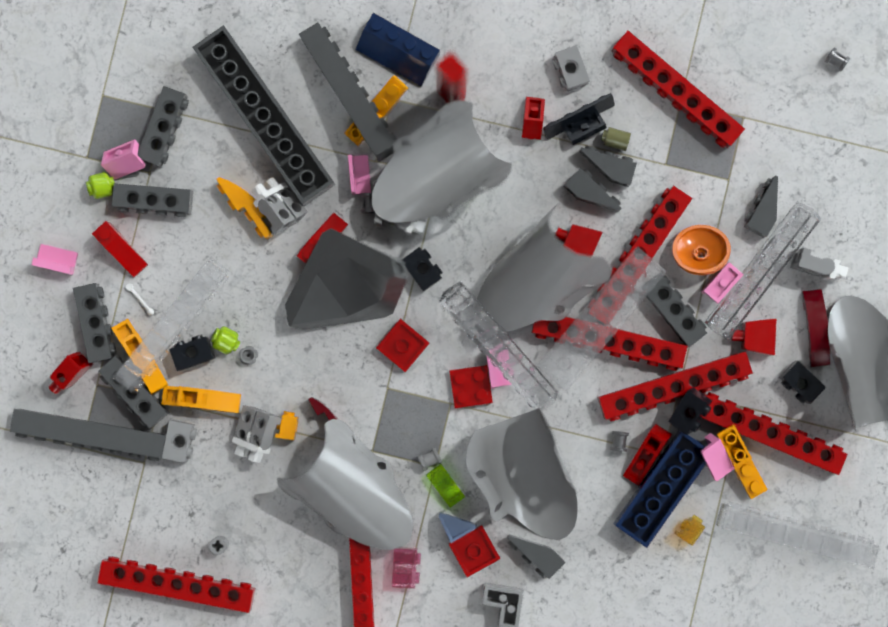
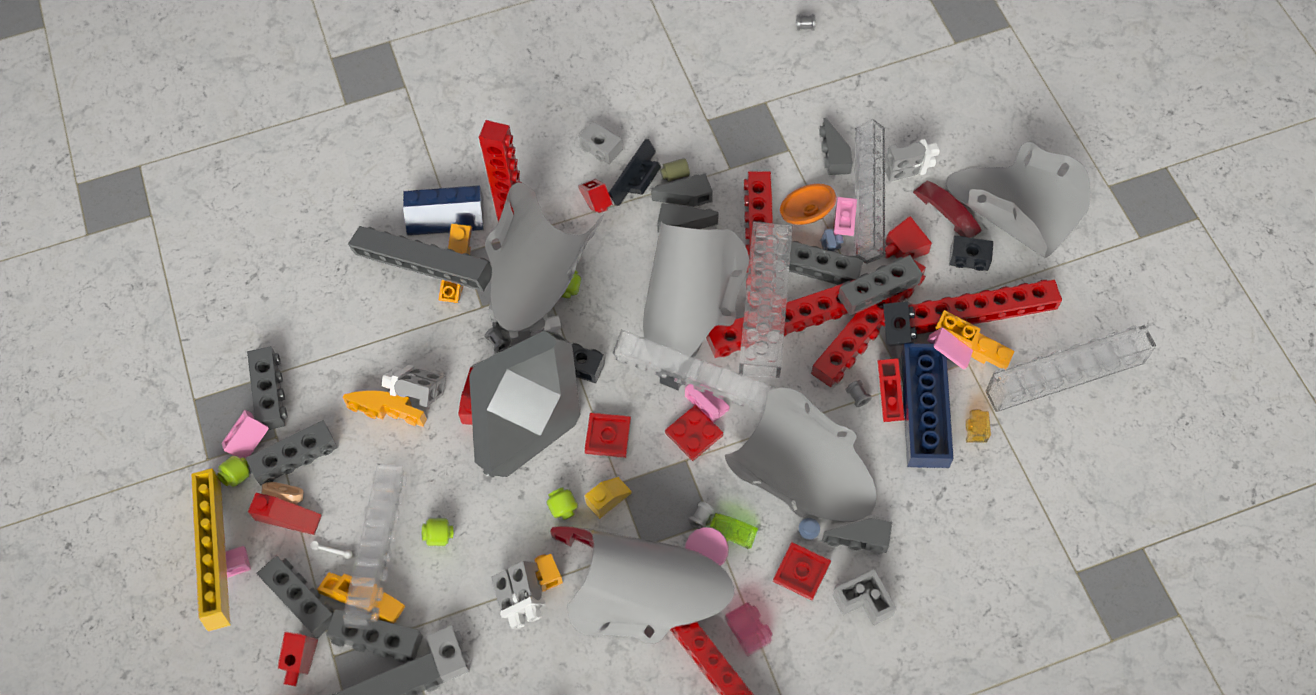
camera: 35 degrees left, 25 degrees down
(47, 249) = (210, 550): none -> yellow brick
(127, 228) = (282, 491): none -> light nougat plate
(180, 355) = (410, 575): black brick -> none
(201, 399) = (446, 596): light orange slope -> none
(253, 355) = (468, 527): light grey plate -> none
(263, 115) = (356, 323): dark grey brick -> none
(331, 379) = (562, 503): none -> lime head
(359, 174) = (472, 322): bright pink panel -> none
(371, 395) = (606, 496): none -> yellow slope
(416, 487) = (710, 544): none -> bright pink tile
(455, 527) = (767, 559): sand blue slope -> none
(504, 523) = (809, 528): none -> sand blue plate
(675, 79) = (698, 109): red brick -> none
(695, 295) = (831, 242): none -> sand blue tile
(731, 374) = (855, 301): none -> dark grey brick

